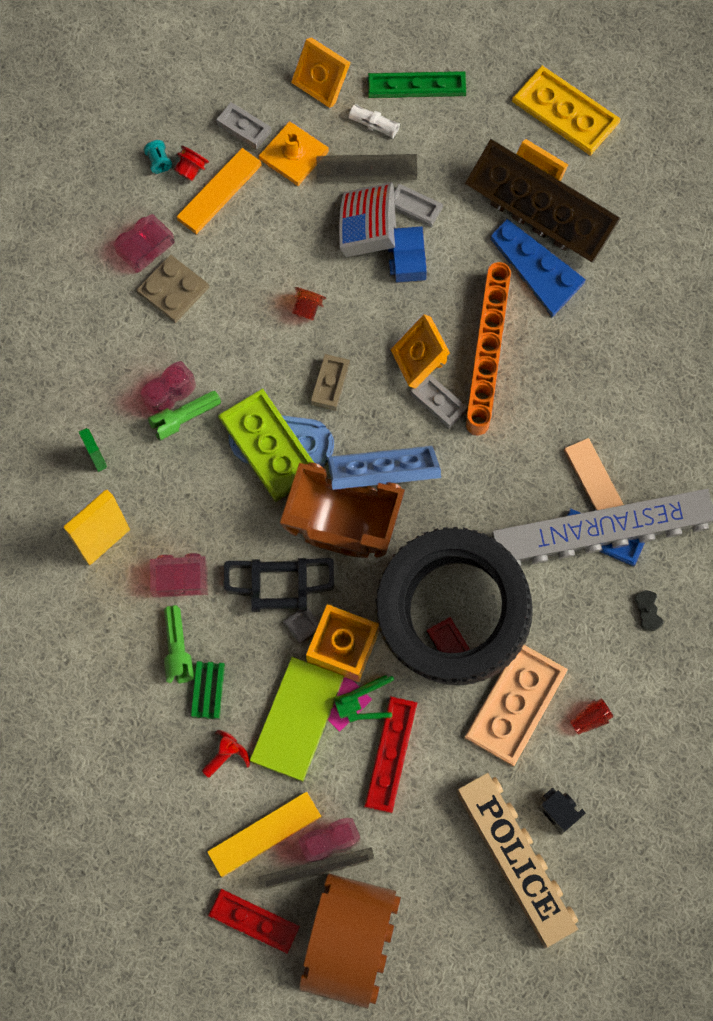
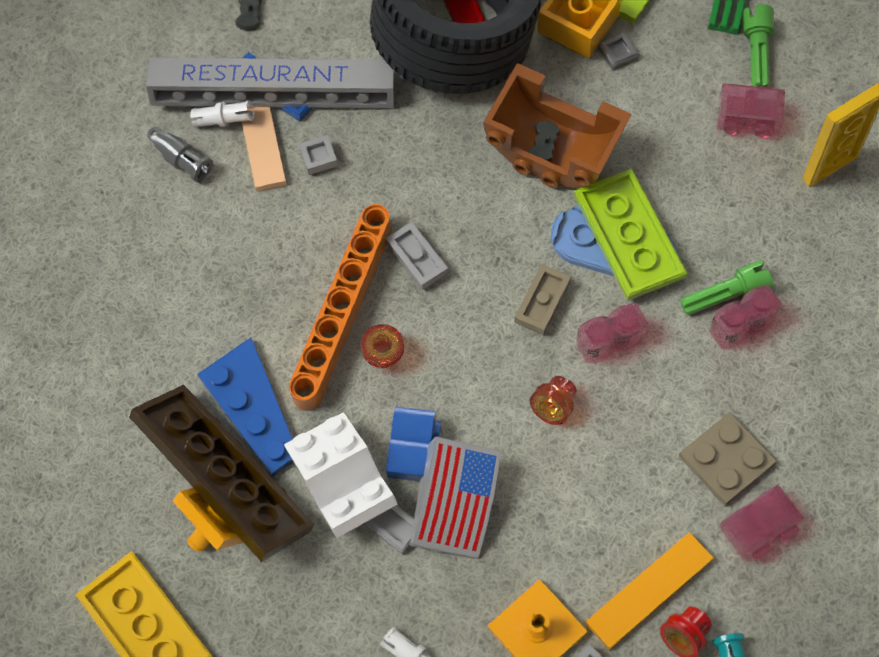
camera: 165 degrees left, 5 degrees down
(93, 449) = (844, 249): green tile -> none
(259, 567) = (659, 112): black bar -> none
(277, 356) = (619, 331): none -> clear pink brick
(352, 514) = (545, 140): none -> pearl dark grey piece
(367, 167) = (440, 582): clear smoke tile -> none
(383, 467) = (500, 179): medium blue tile -> none
(420, 351) = (426, 301): light orange tile -> none
(455, 216) = (340, 474): none -> white bracket
(455, 315) = (375, 339): none -> clear red piece
(543, 474) = (318, 155): none -> light grey plate
(635, 494) = (222, 114): none -> white pin
(663, 455) = (180, 154): none -> dark grey piece

